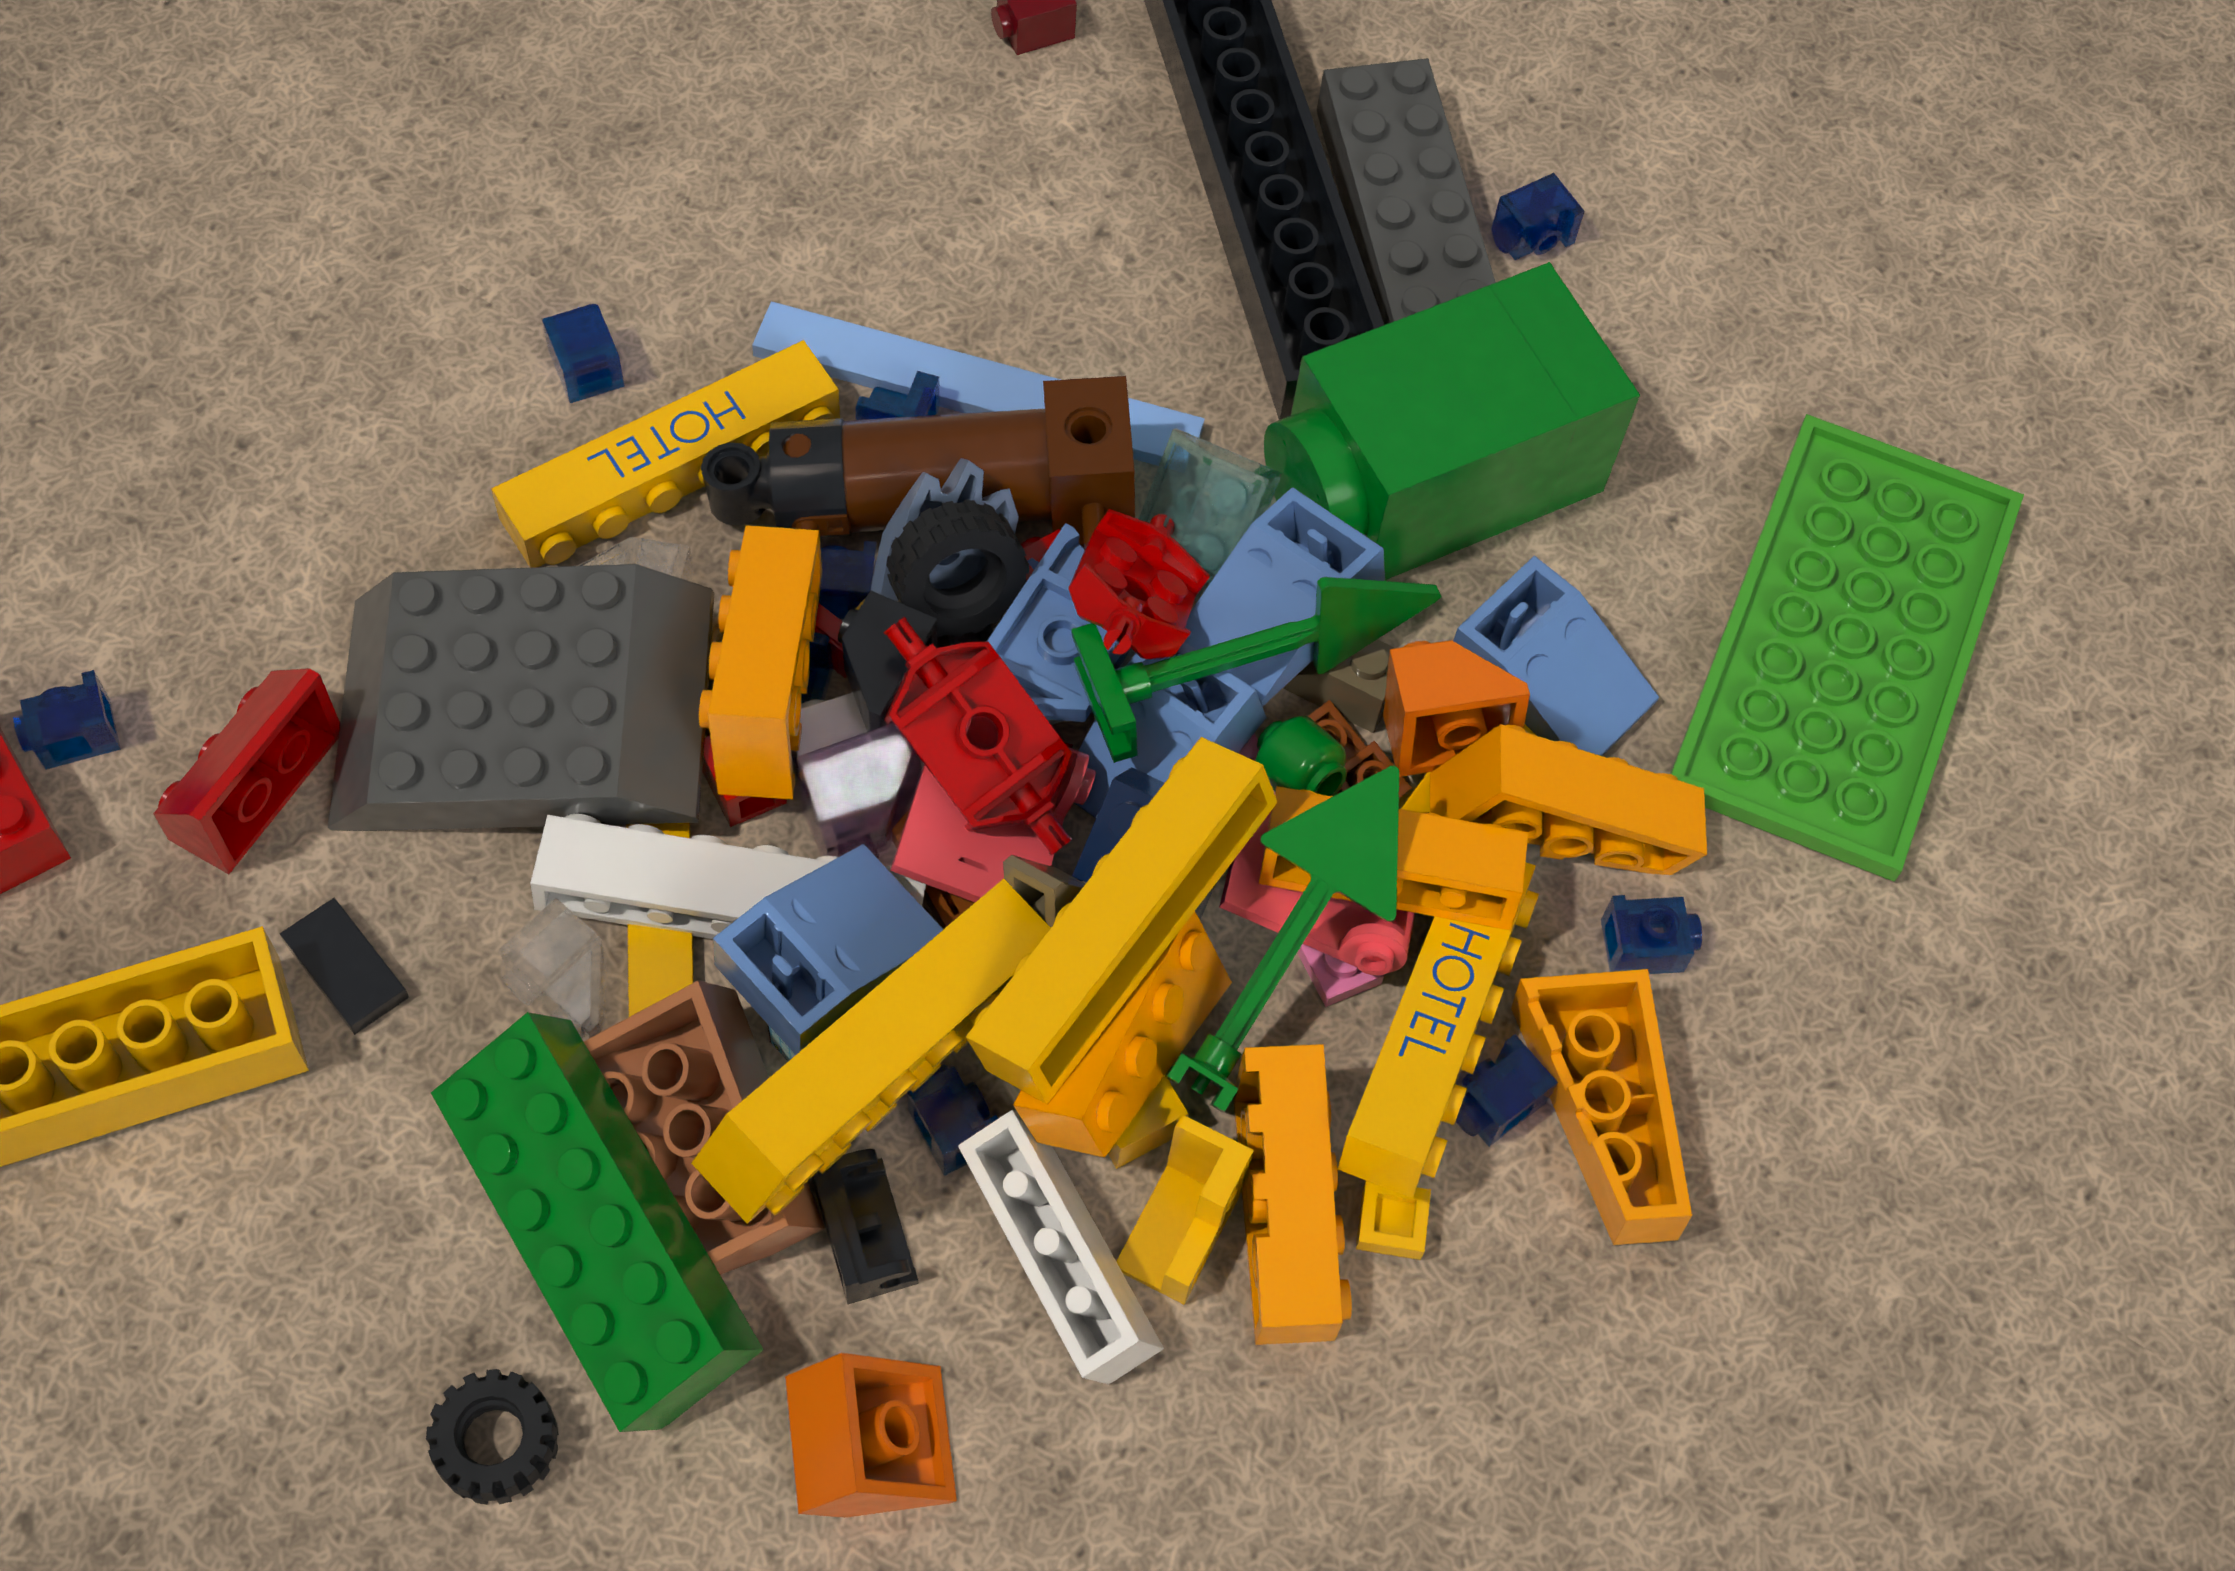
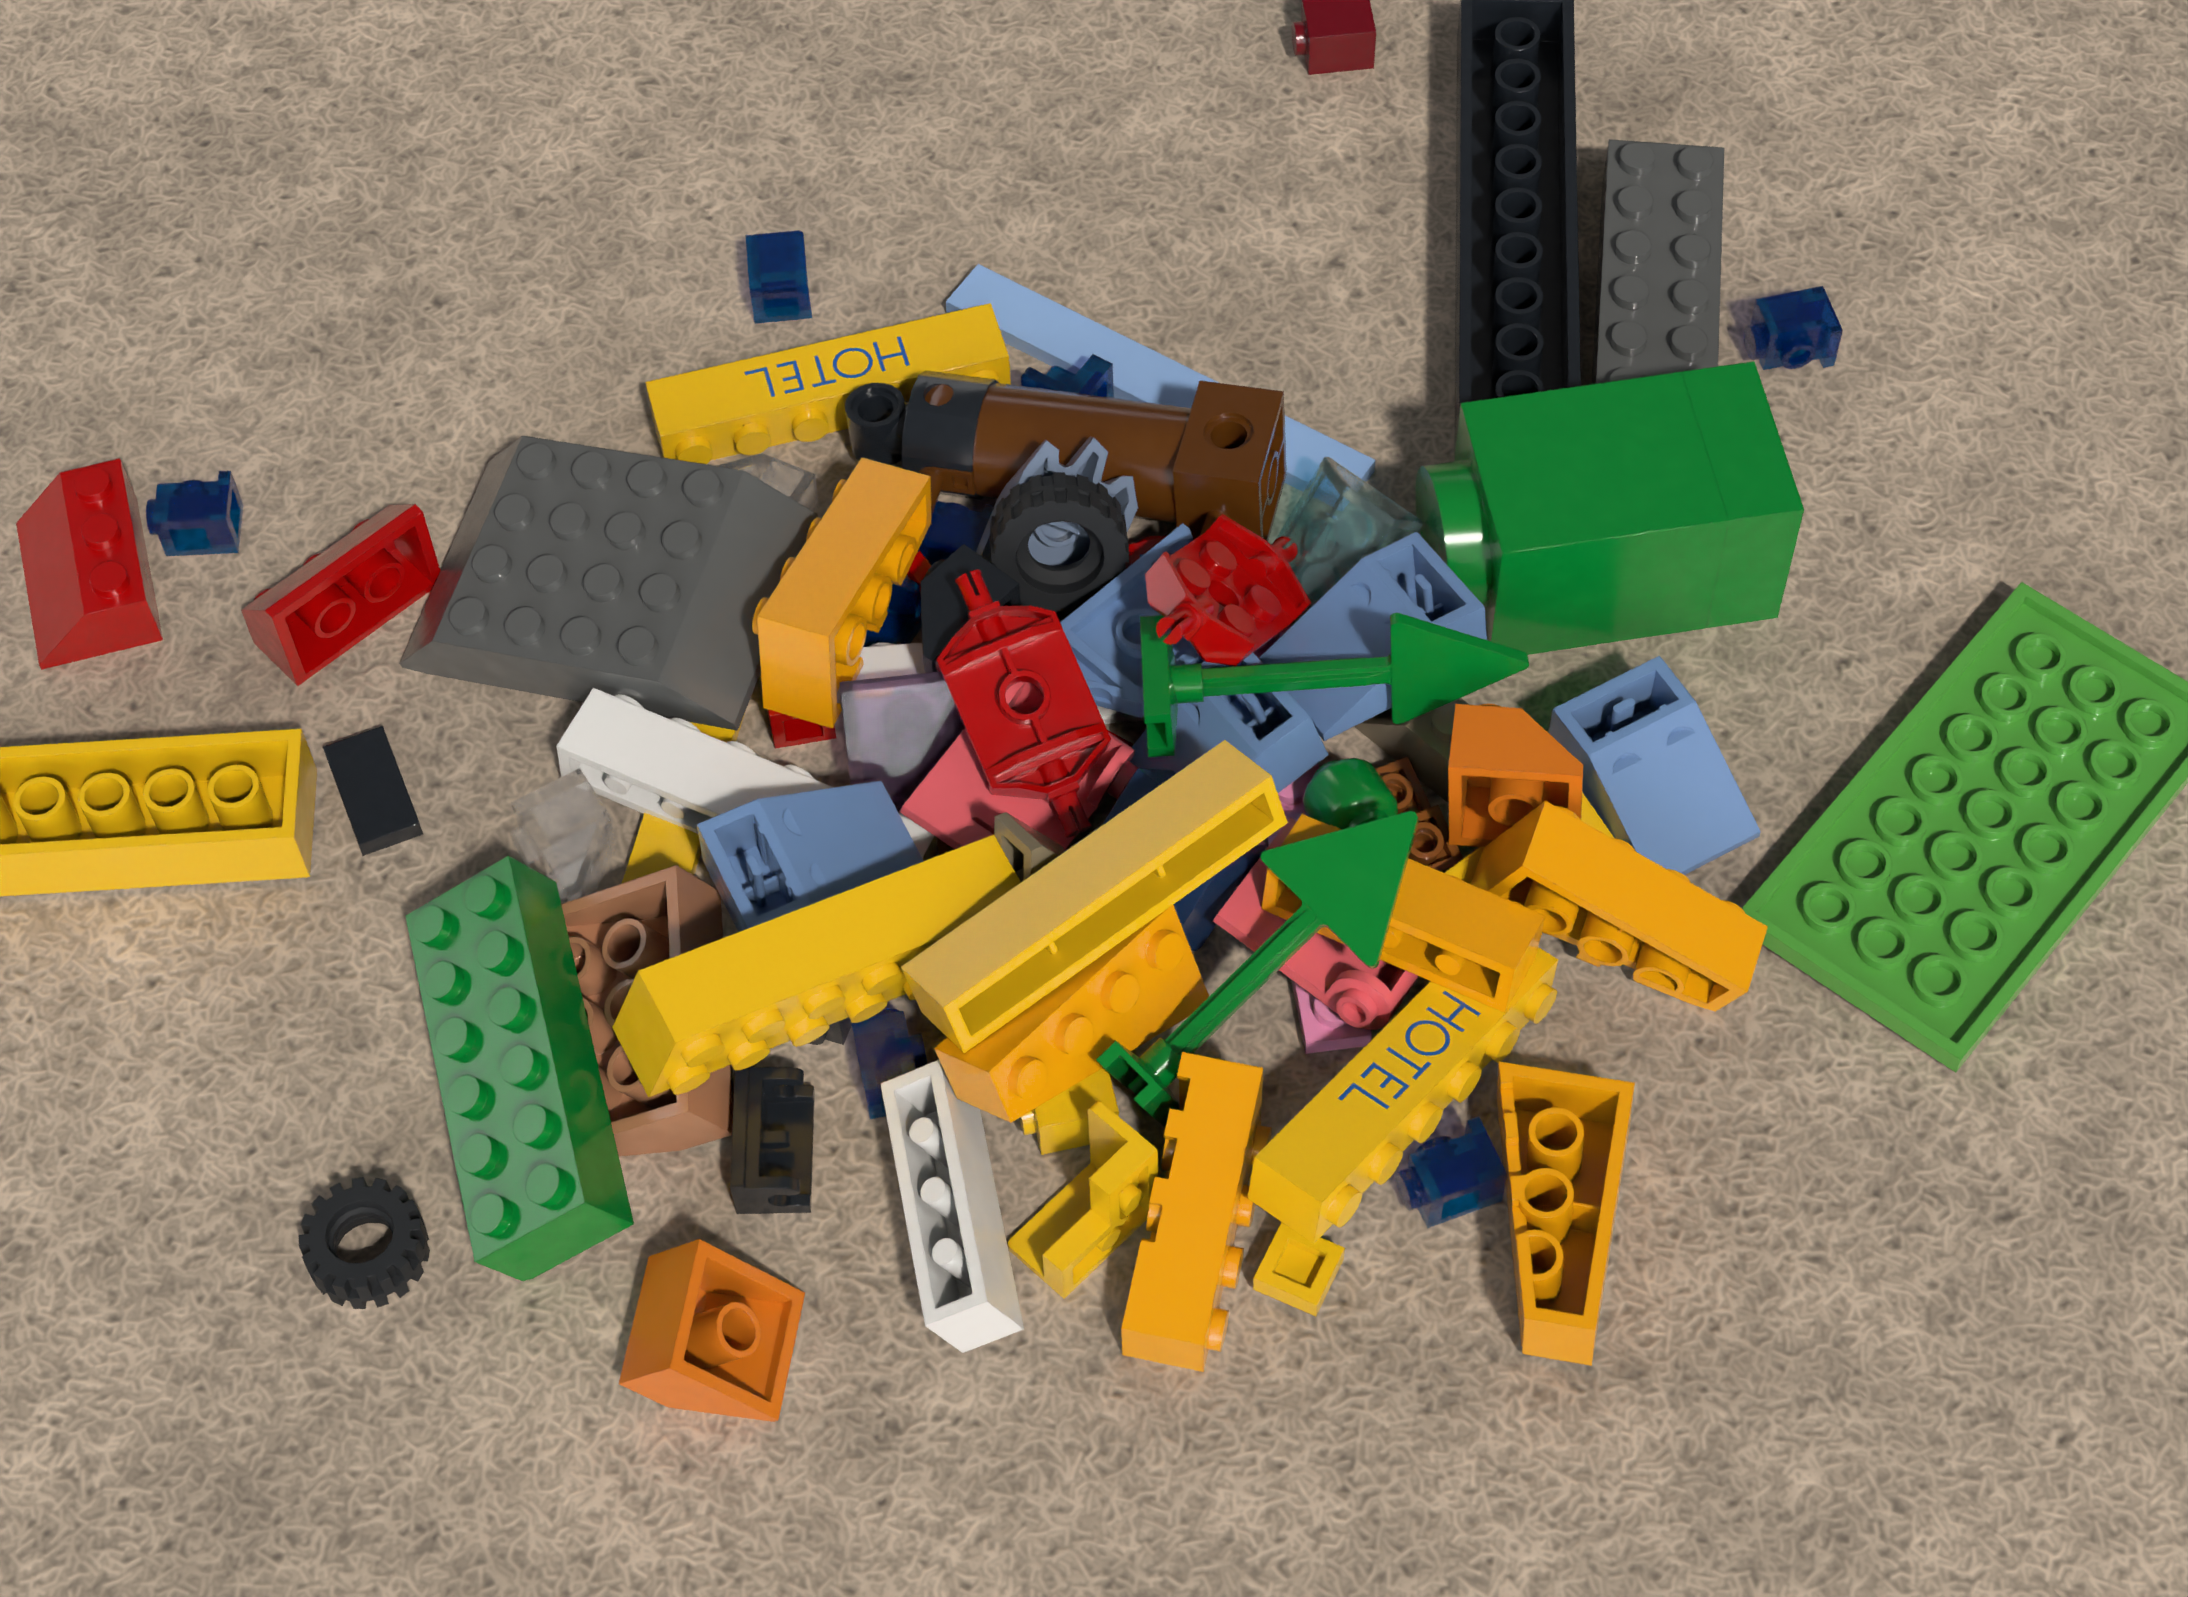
camera: 25 degrees right, 5 degrees down
(1636, 946) = (1666, 1060): clear blue brick -> none

